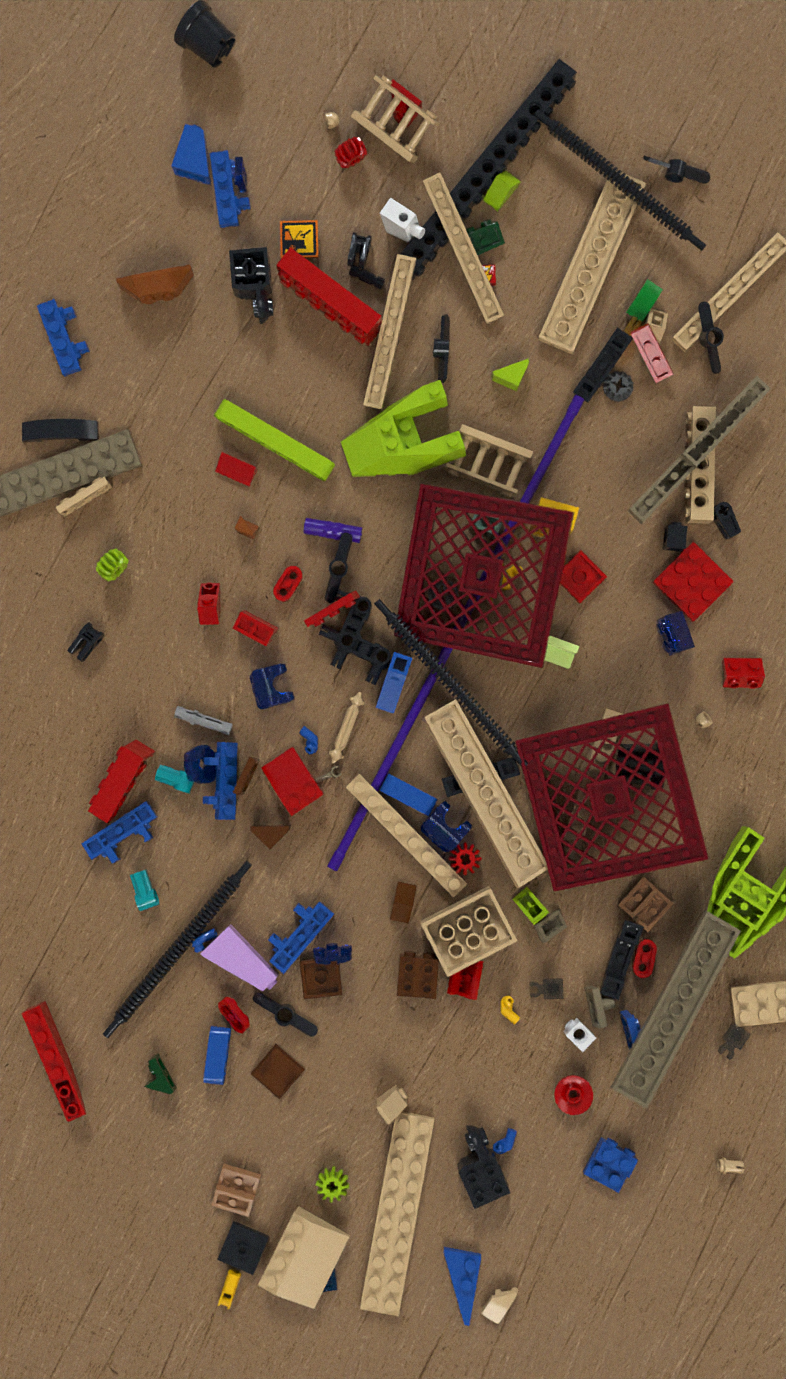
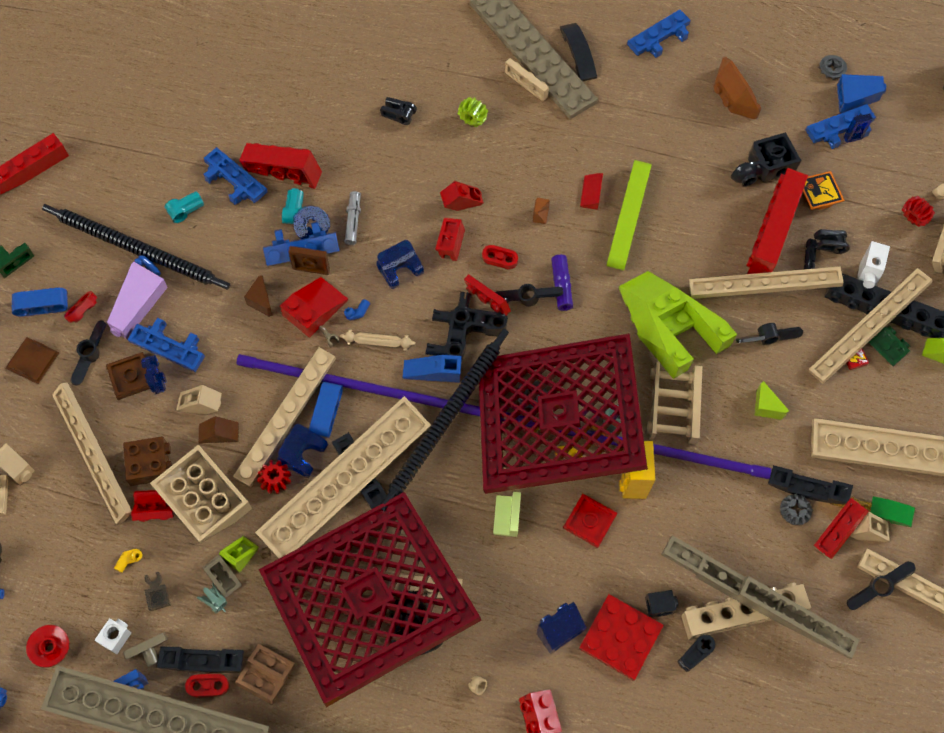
camera: 70 degrees right, 20 degrees down
(150, 163) = (837, 62): none -> dark grey gear
(368, 915) = (199, 400): none -> tan slope
(394, 1027) = (92, 453): none -> tan plate
(571, 935) = (216, 602): none -> sand green piece

